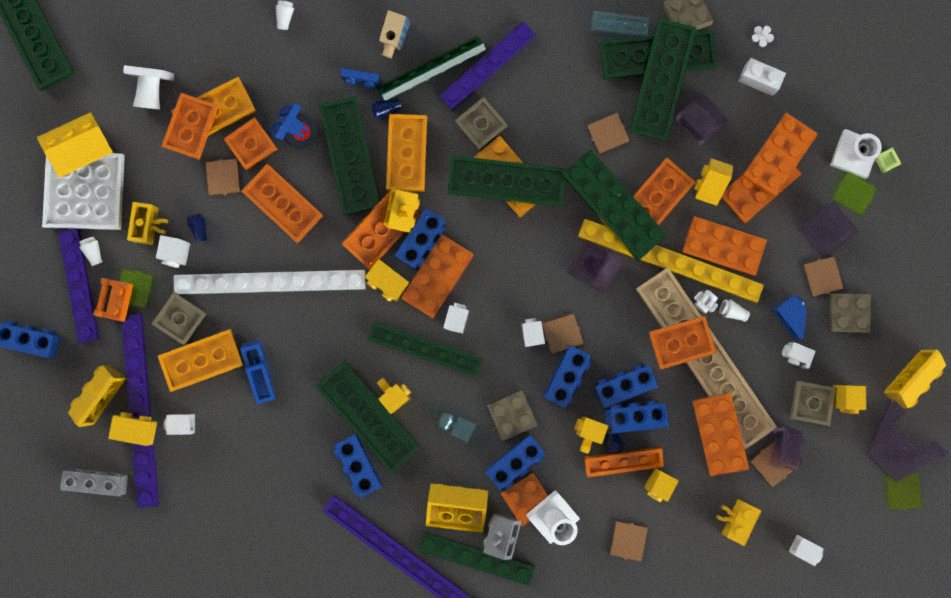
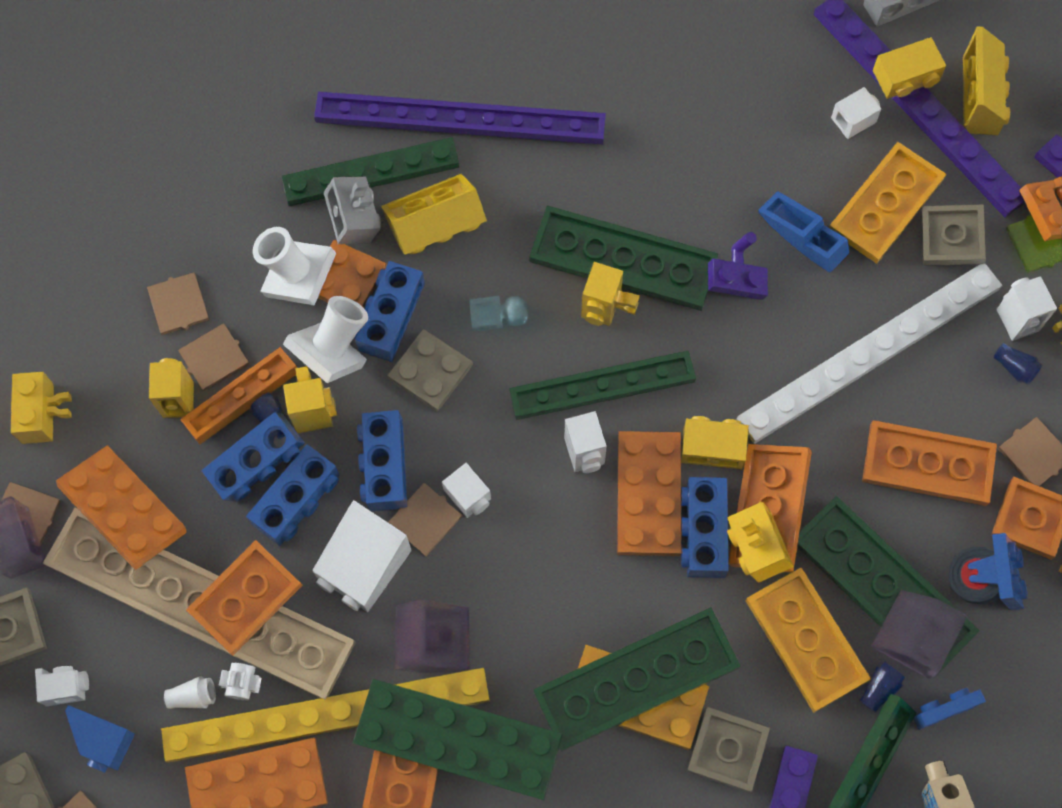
camera: 150 degrees right, 15 degrees down
(313, 366) = (737, 277): none -> dark purple plate
(351, 119) = (919, 632): none -> clear purple slope
(367, 472) = (601, 204): blue brick -> none
(561, 459) = (327, 344): none -> white plant
(609, 328) = (361, 557): none -> white slope
(625, 495) = (213, 357): none -> medium nougat piece

